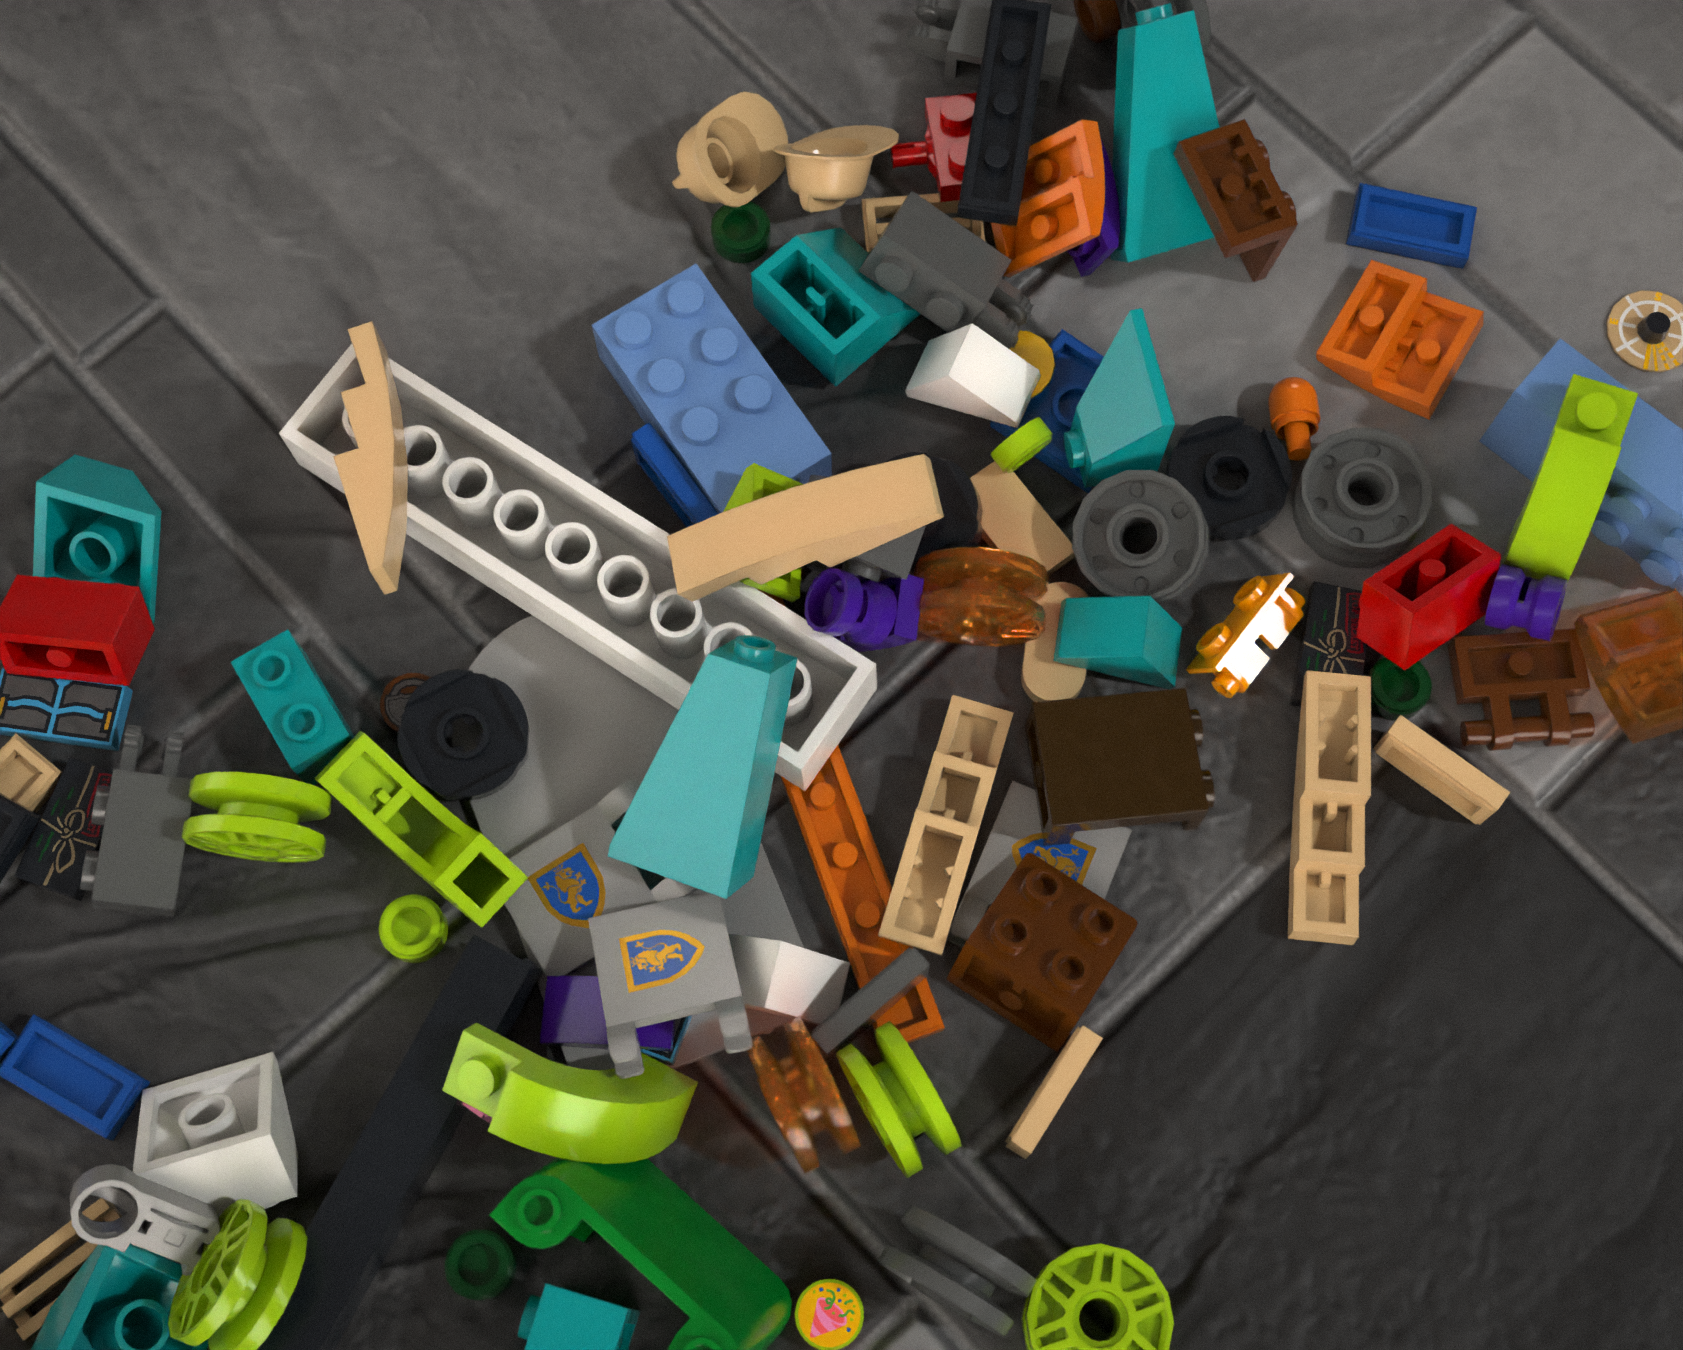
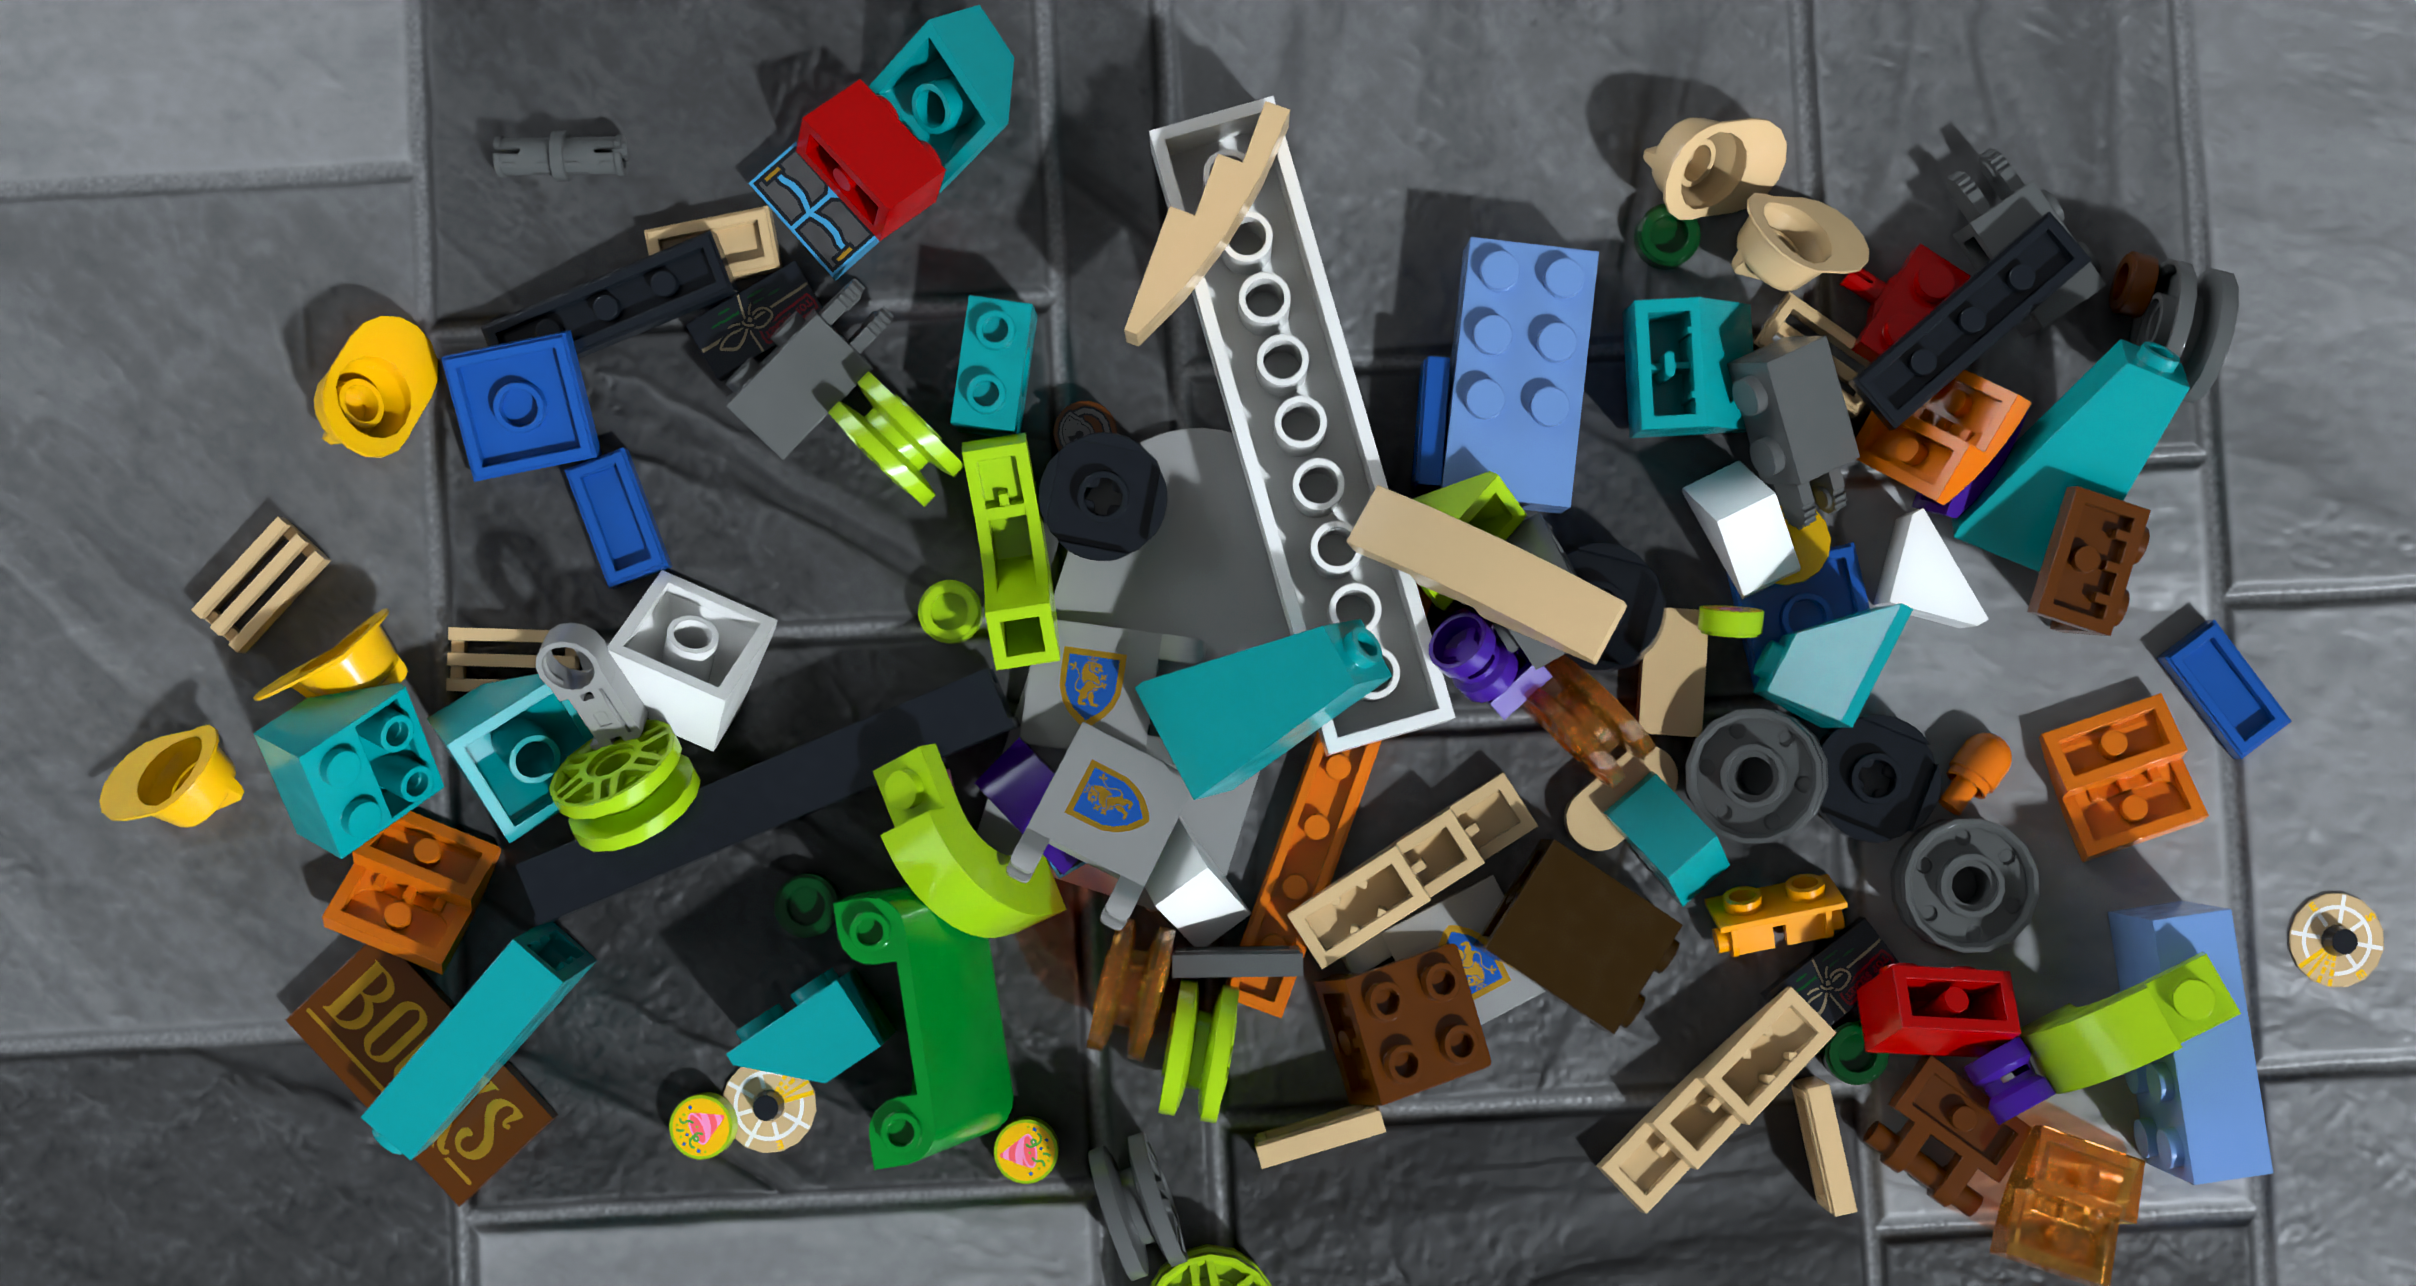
camera: 40 degrees right, 15 degrees up
(1112, 292) = (1925, 575): none -> white slope

